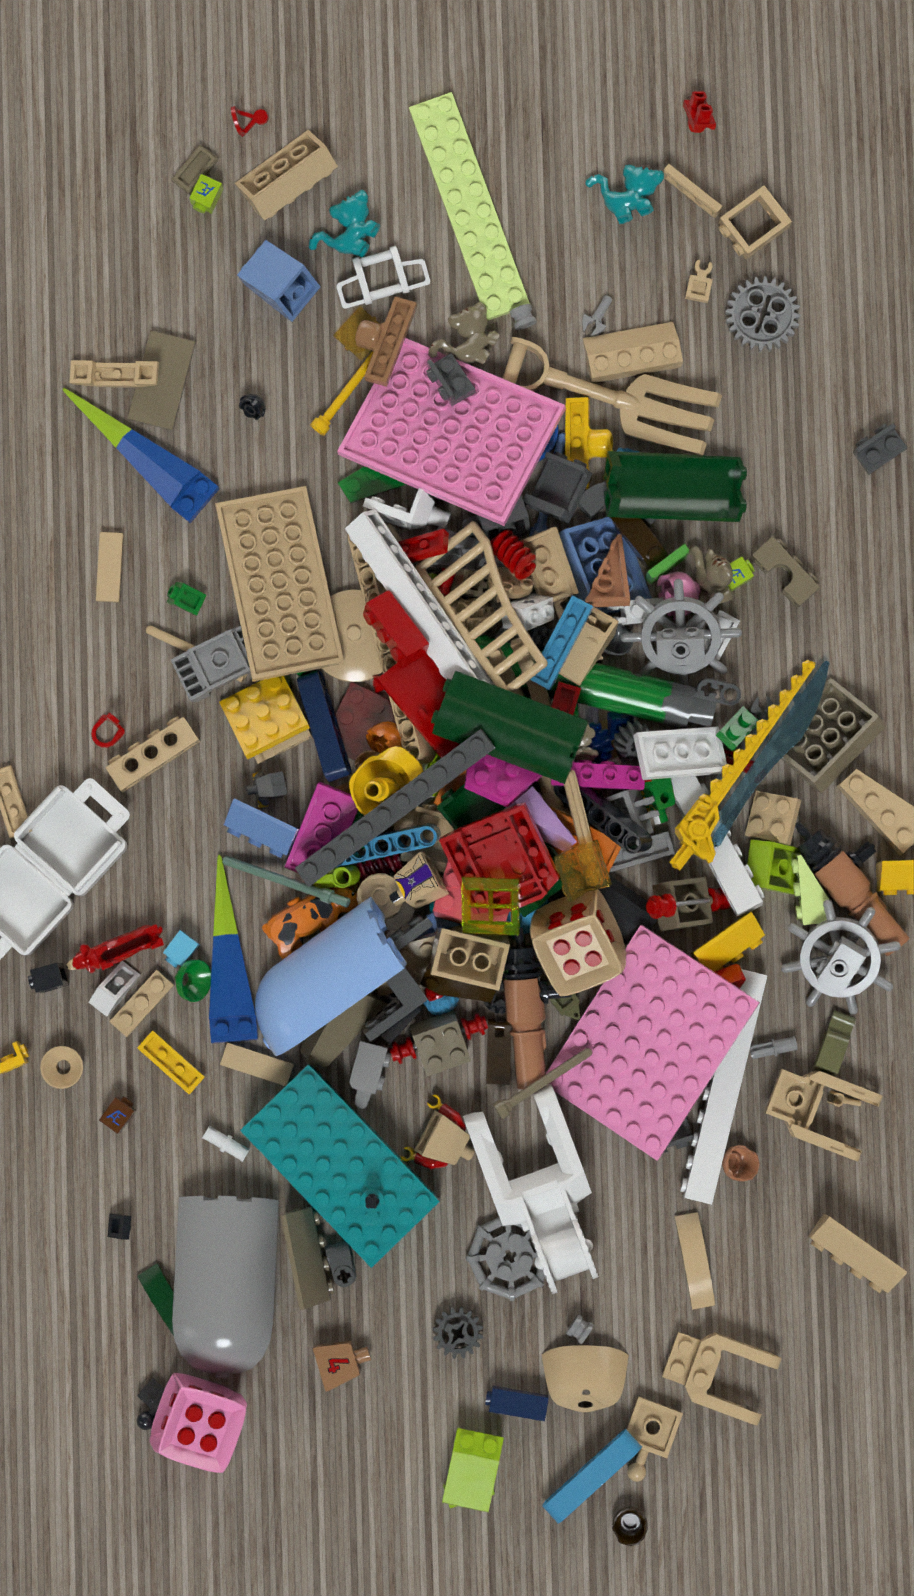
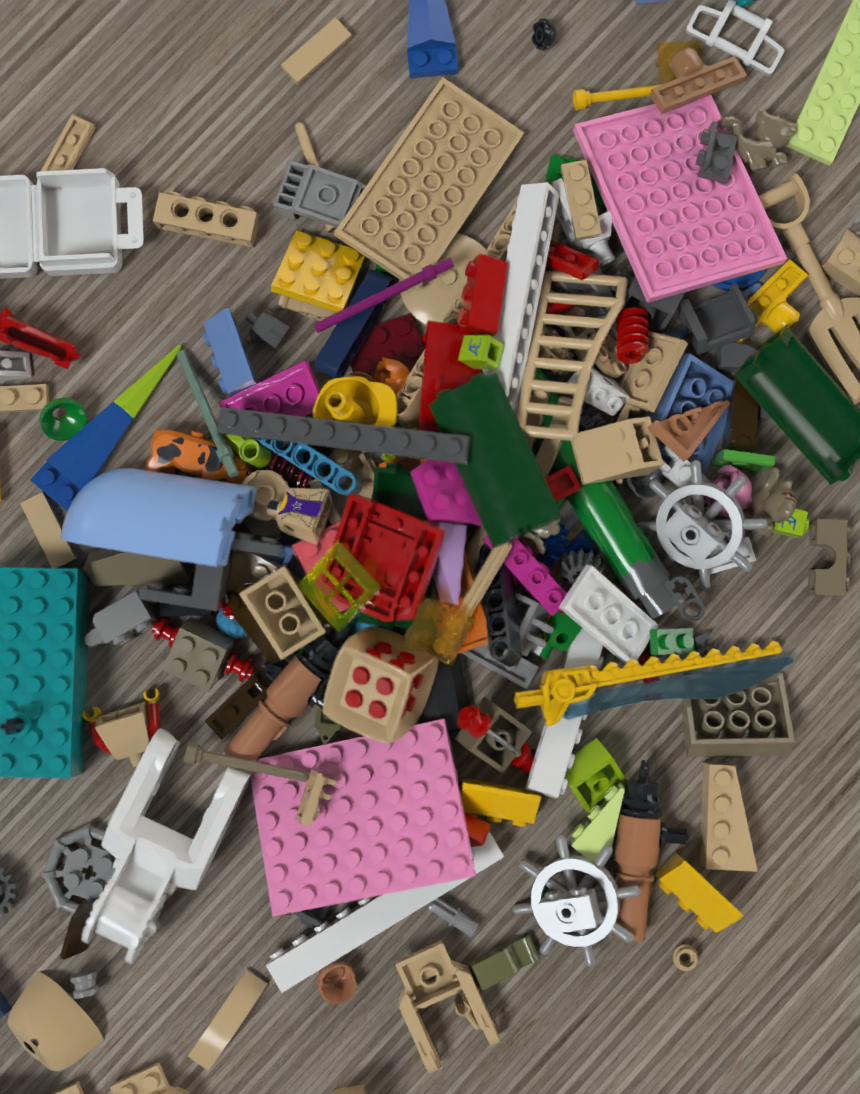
camera: 40 degrees right, 0 degrees up
(109, 717) = (192, 183): red piece -> none
(180, 949) = (79, 386): medium azure brick -> none
(185, 597) = (350, 128): green bracket -> none
(341, 645) = (428, 273): none -> magenta bar
(394, 500) = (581, 200): none -> tan plate
(431, 666) = (481, 352): none -> lime brick
(523, 317) = (817, 167): light grey wheel -> none
(542, 1297) = (73, 944): none -> dark brown slope
(563, 640) = (604, 435): dark azure plate -> none
(609, 1065) = (309, 807): none -> tan plate
(773, 817) = (630, 738): tan plate -> none

